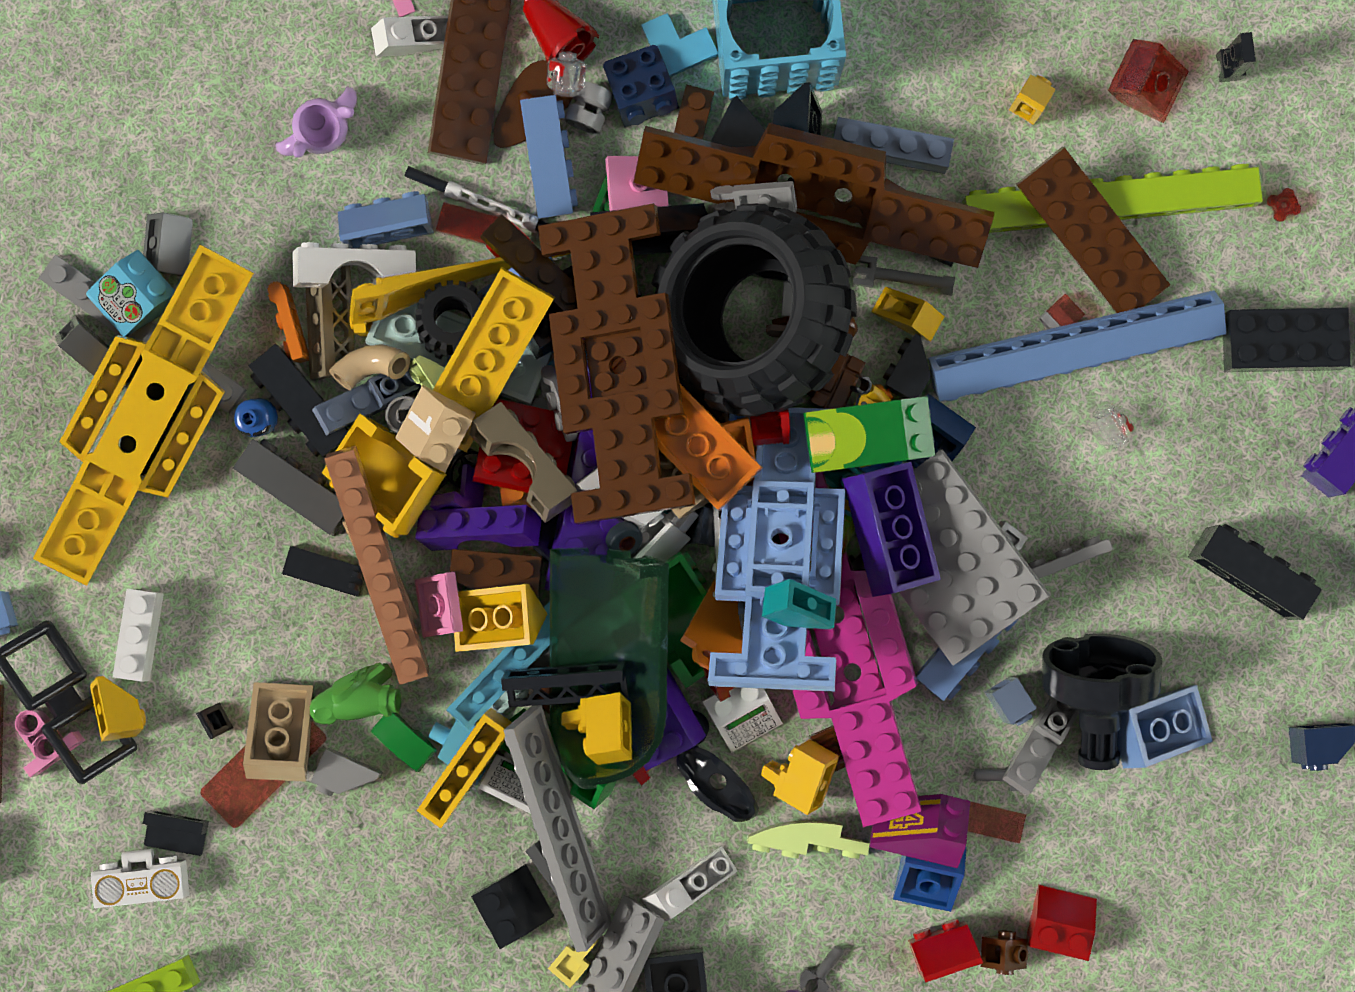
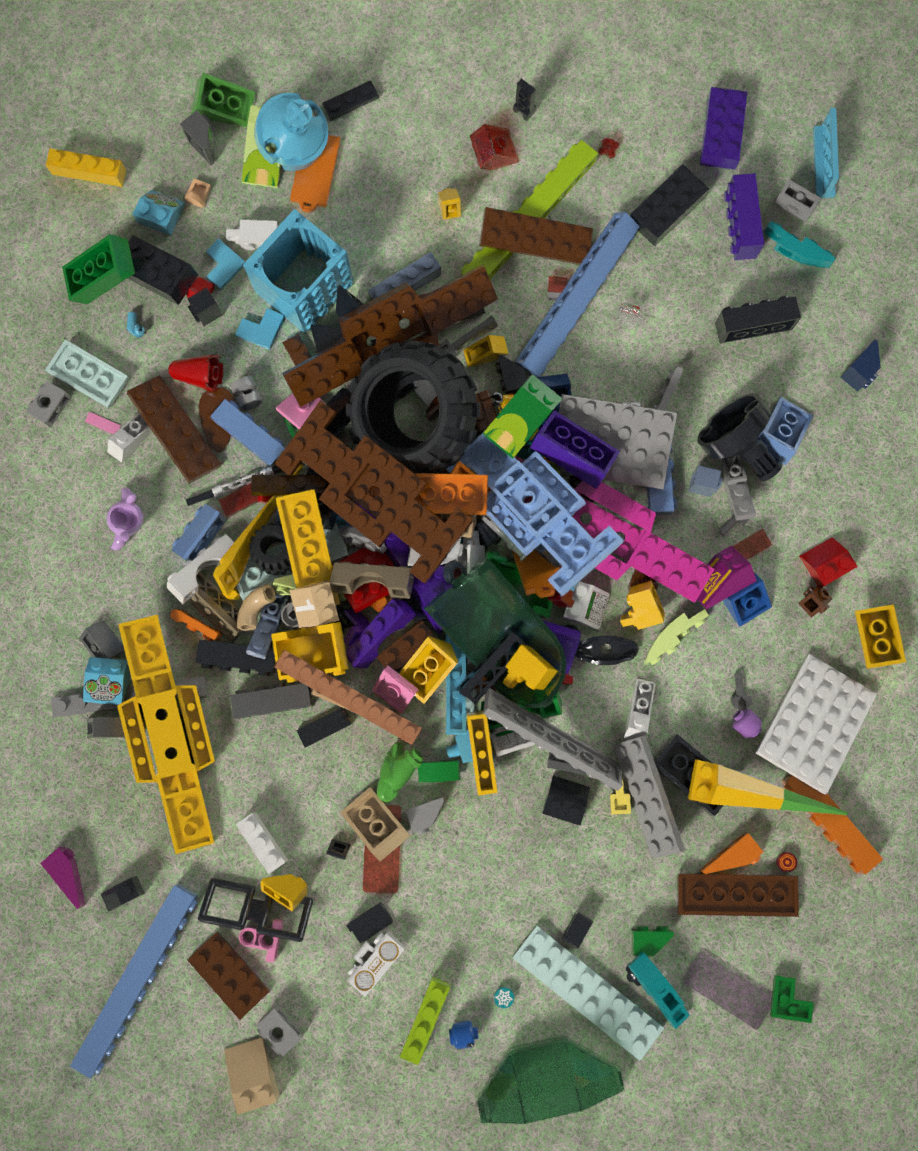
camera: 40 degrees left, 5 degrees down
(256, 417) = (227, 681): blue head -> none
(566, 74) = (221, 385): clear head -> none
(641, 85) = (262, 361): dark blue bracket -> none
(771, 428) = (474, 456): red tile -> none
(772, 194) = (371, 348): light grey hinge -> none
(798, 606) = (568, 518): teal slope -> none
(944, 950) = (787, 626): red slope -> none

